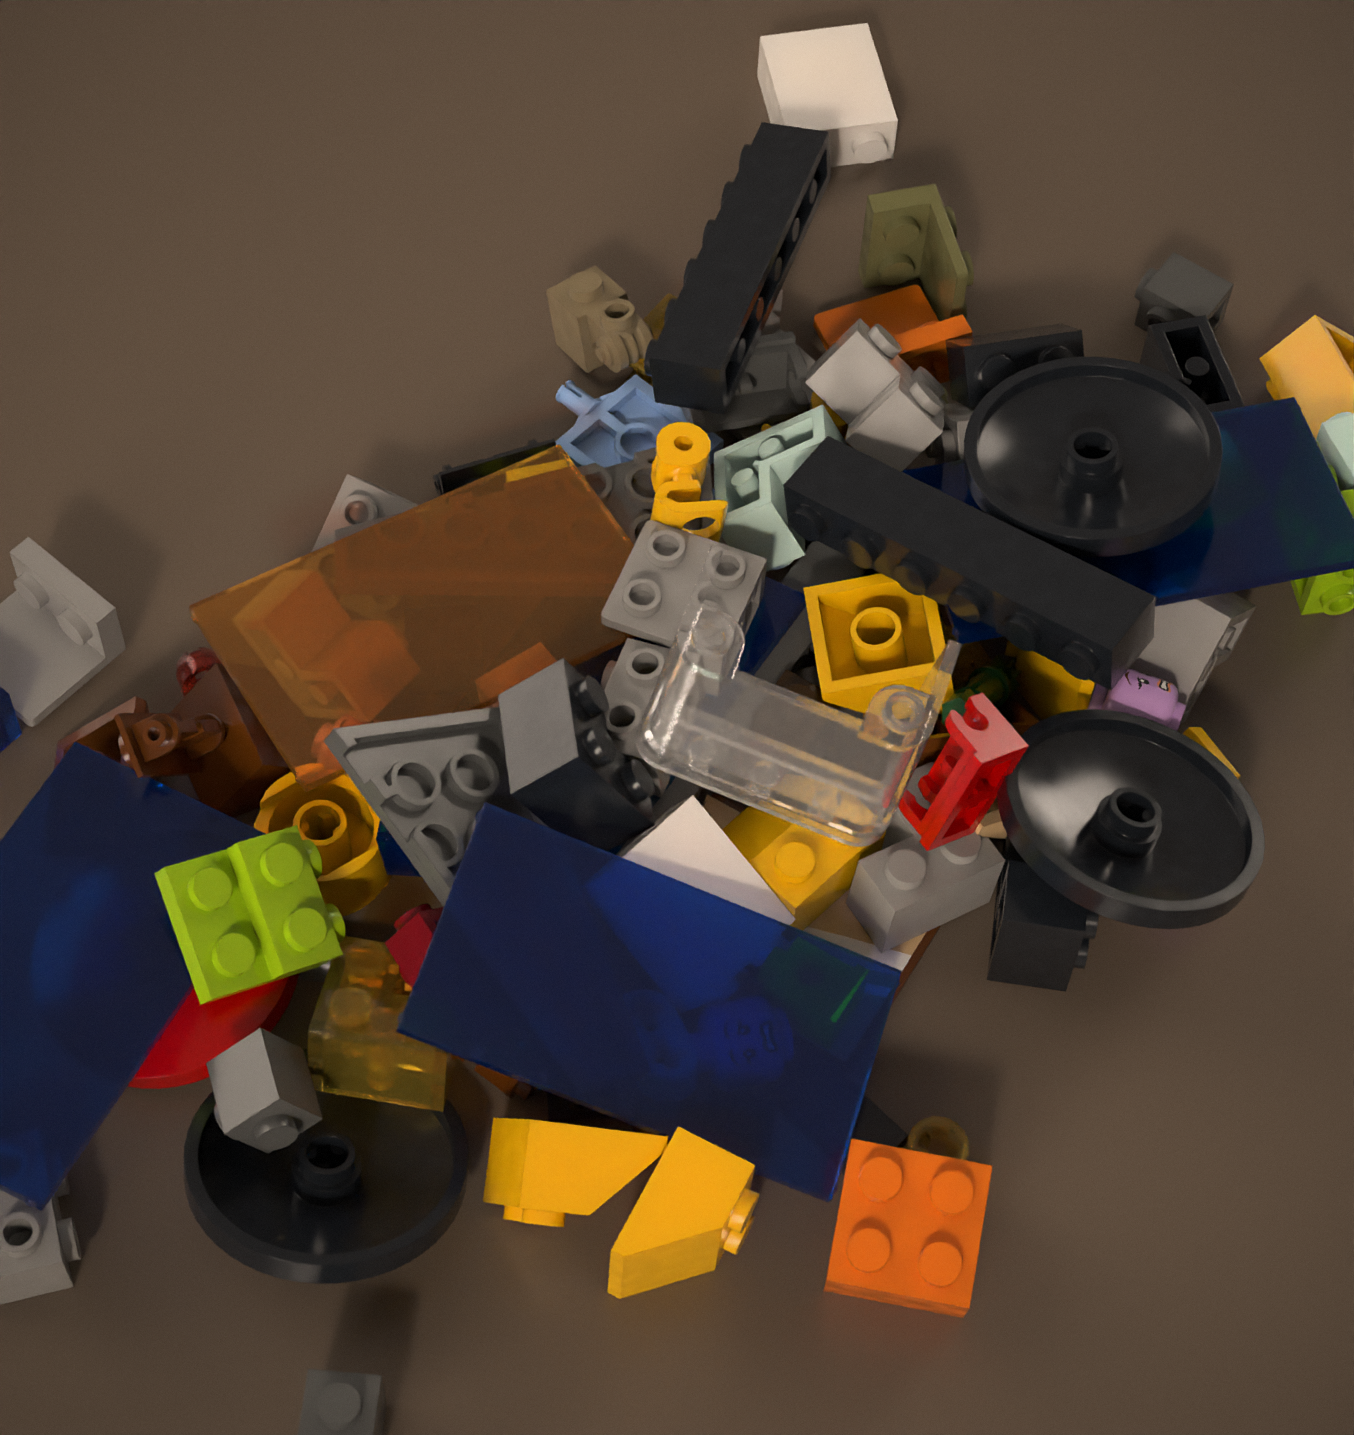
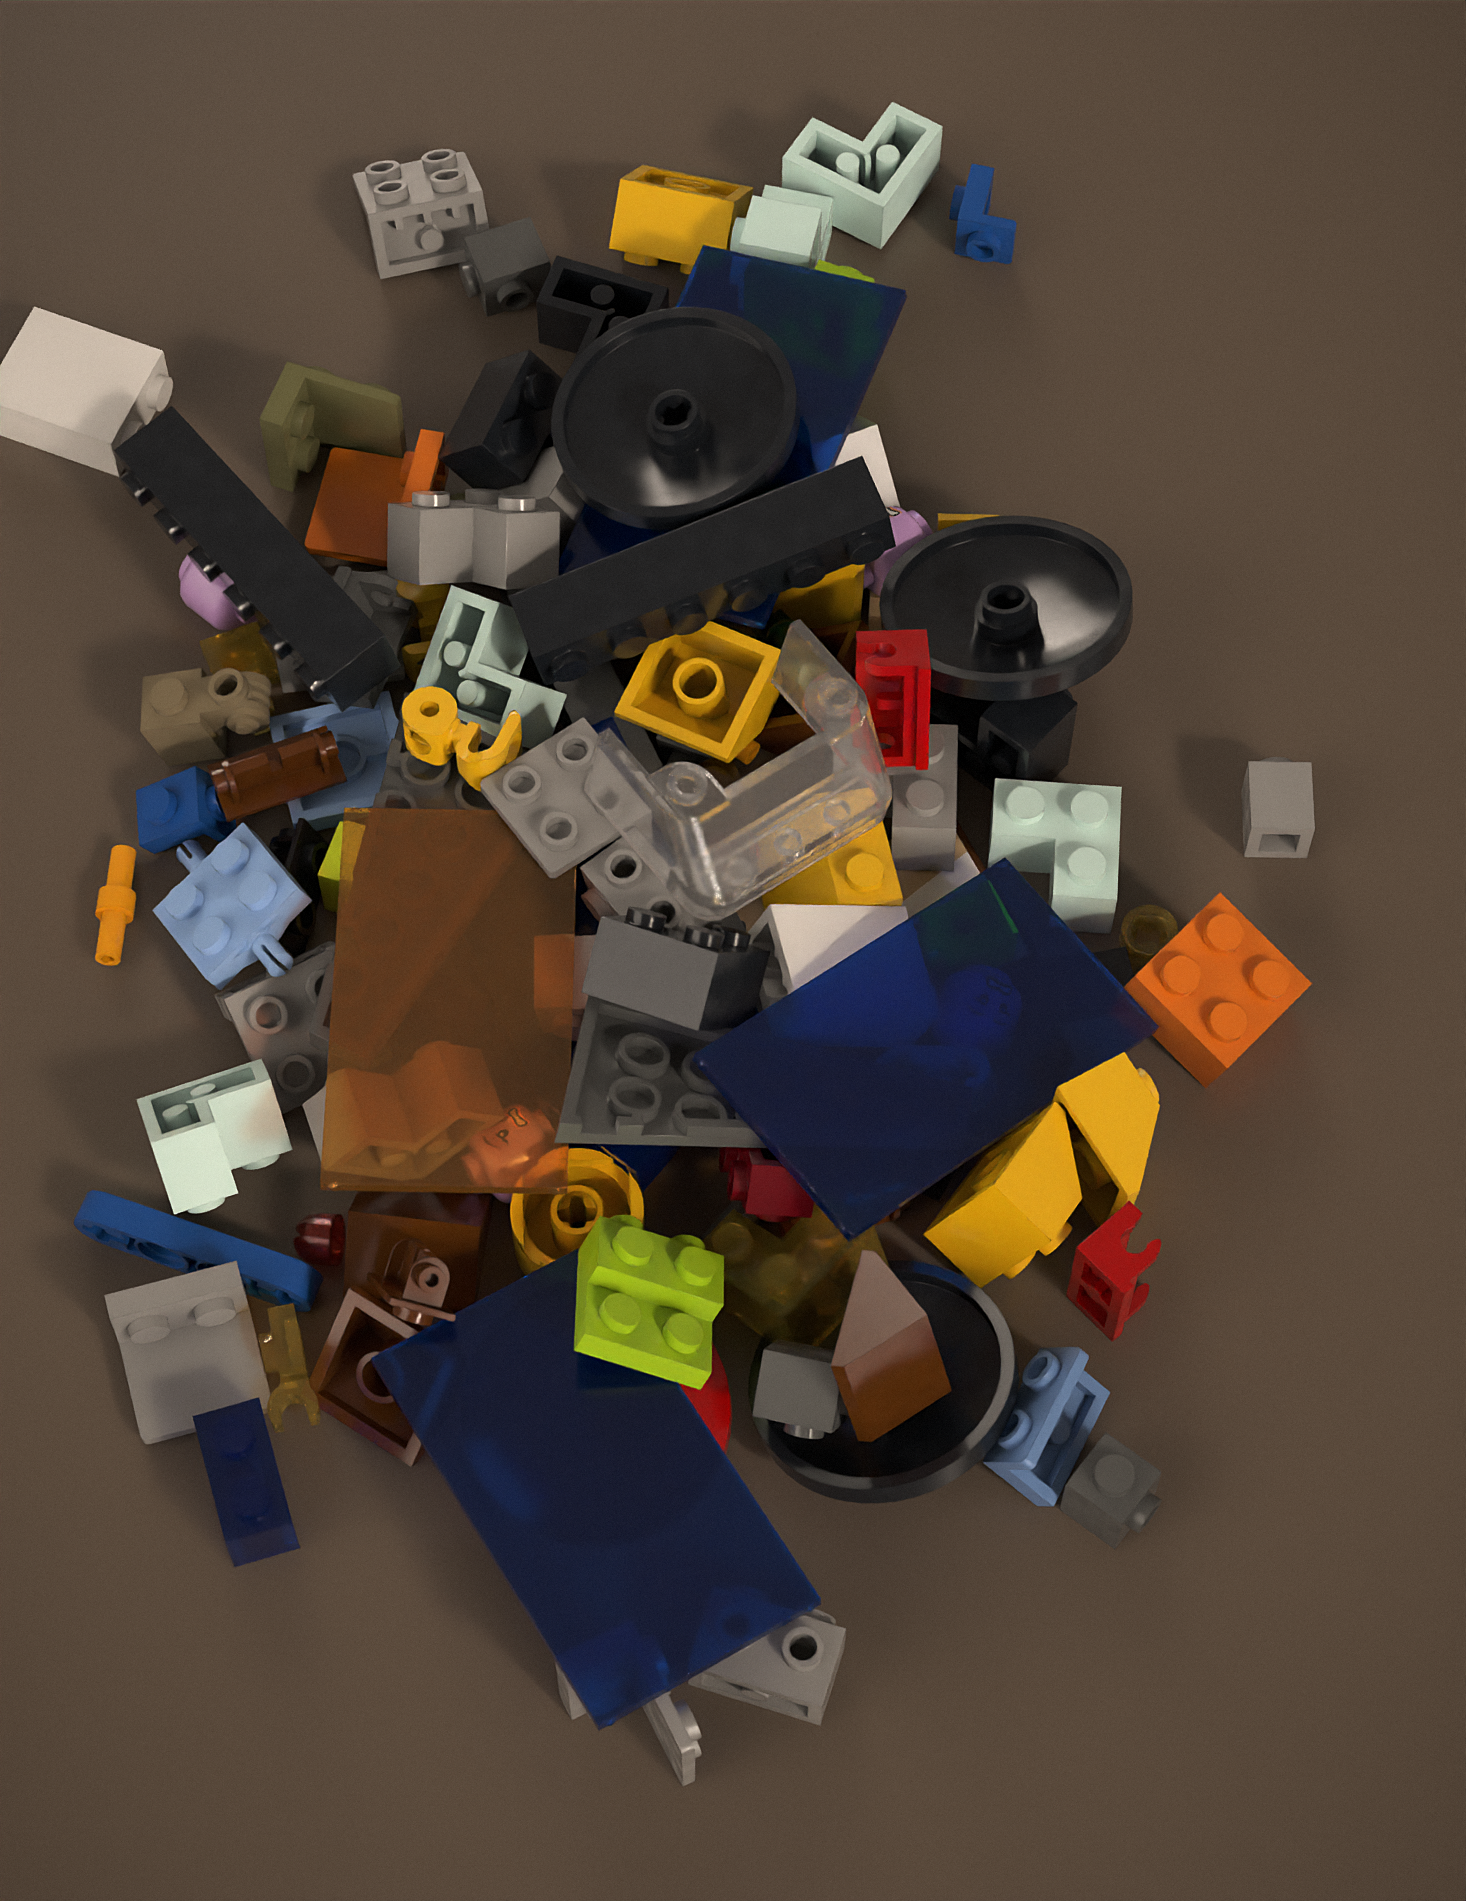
camera: 55 degrees left, 5 degrees up
(74, 704) = (285, 1353): none -> clear yellow plate
(133, 595) = (195, 1247): none -> blue beam
(218, 528) = (209, 1130): none -> light aqua brick
(316, 1123) = (885, 1353): none -> reddish brown slope
(376, 1327) = (1048, 1424): none -> medium blue bracket
(402, 374) = (115, 905): none -> light orange bar
(441, 440) = (232, 907): none -> light blue plate
(518, 369) = (180, 810): none -> blue bracket
(554, 1284) = (1107, 1274): none -> red hinge
(580, 399) = (277, 773): none -> reddish brown hinge
(976, 1026) = (1063, 833): none -> light aqua brick
(1147, 1186) = (1277, 808): none -> light grey brick
(1181, 214) = (421, 211): none -> light grey bracket

